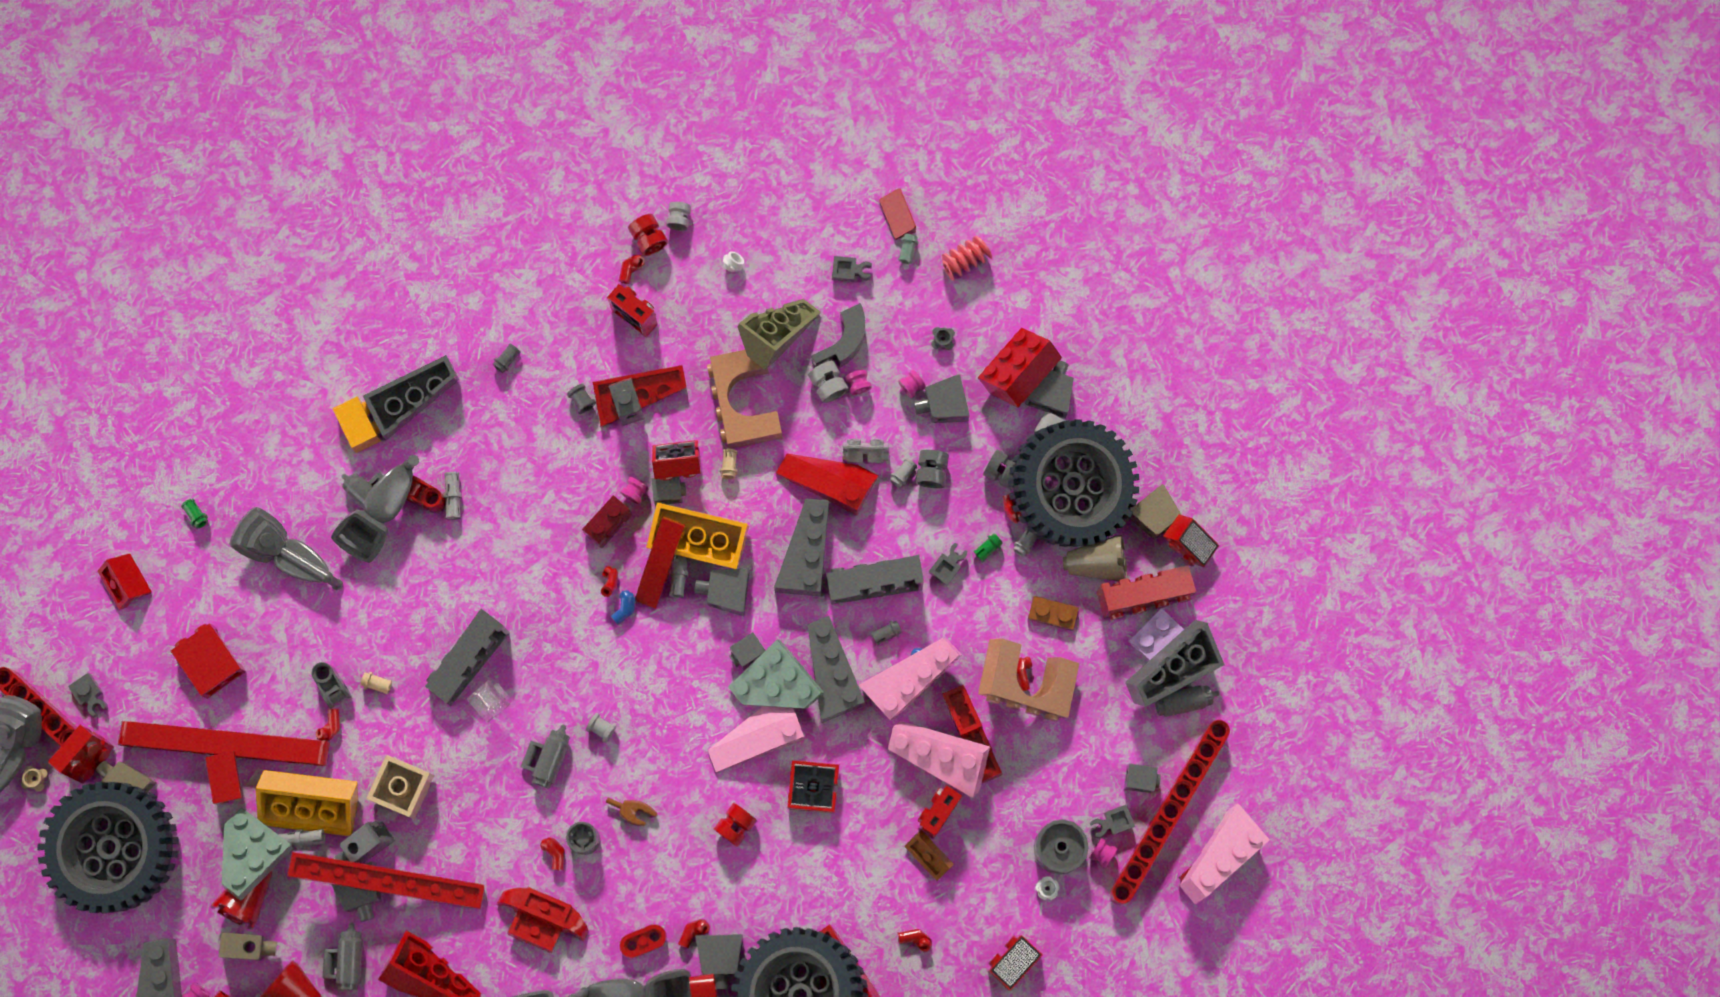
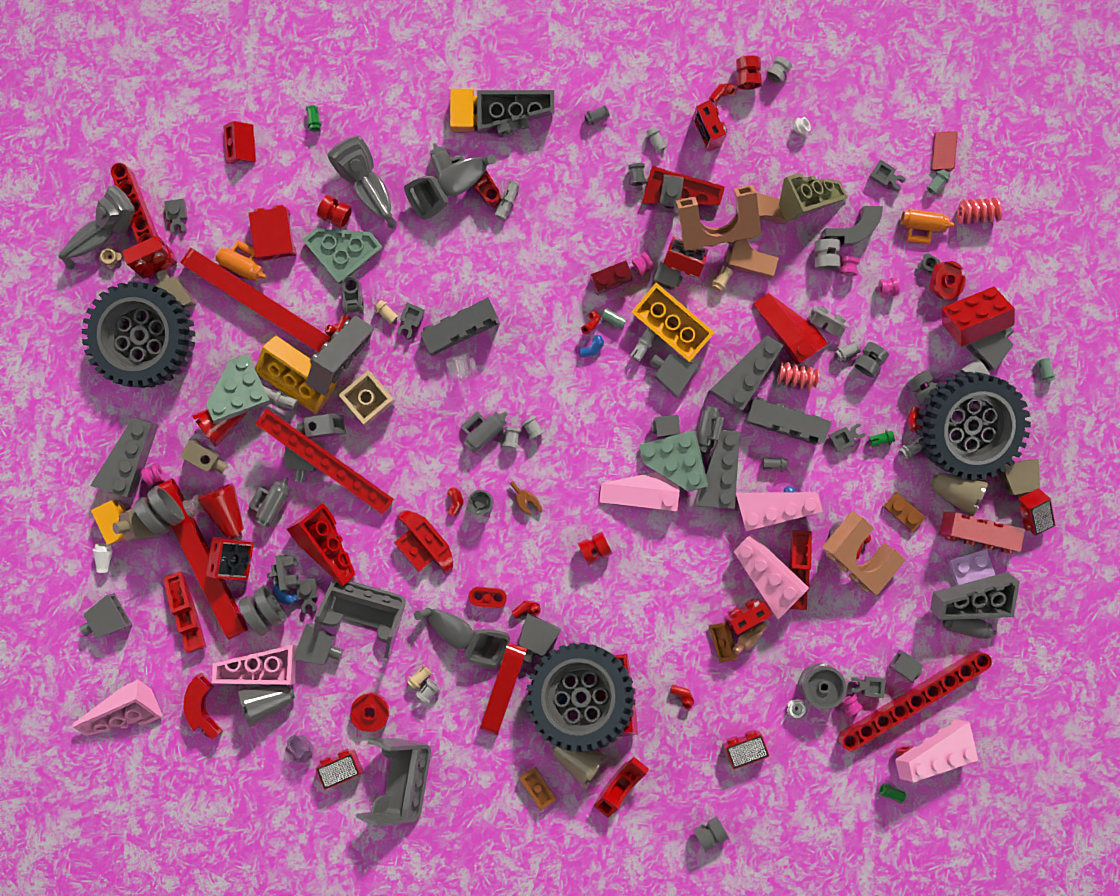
camera: 25 degrees right, 10 degrees up
(186, 712) = (240, 264): none -> orange piece
(223, 778) = (244, 326): red panel -> none
(266, 602) = (336, 212): none -> red wheel
(295, 640) = (342, 250): none -> sand green plate
(344, 754) = (338, 354): none -> dark grey wedge
(407, 674) = (411, 317): none -> dark grey plate
(416, 419) = (509, 128): none -> dark grey plate
(583, 352) = (656, 139): none -> light grey pin
(583, 749) = (511, 437): none -> light grey bush
(632, 564) = (614, 318): none -> sand green pin
(659, 562) = (635, 328): red slope -> none
(720, 396) = (743, 225): none -> nougat arch
(795, 631) = (709, 429): none -> dark grey piece
(813, 786) = (664, 549): piece -> none
(862, 526) = (798, 375): none -> coral piece
(915, 296) = (924, 221): none -> orange piece
(944, 401) = (906, 313): dark grey torso -> none
(954, 837) = (749, 638): none -> nougat piece
(958, 345) = (938, 280): none -> red plate
(1124, 386) = (1046, 370): none -> sand green pin
(1200, 927) = (892, 793): none -> green pin

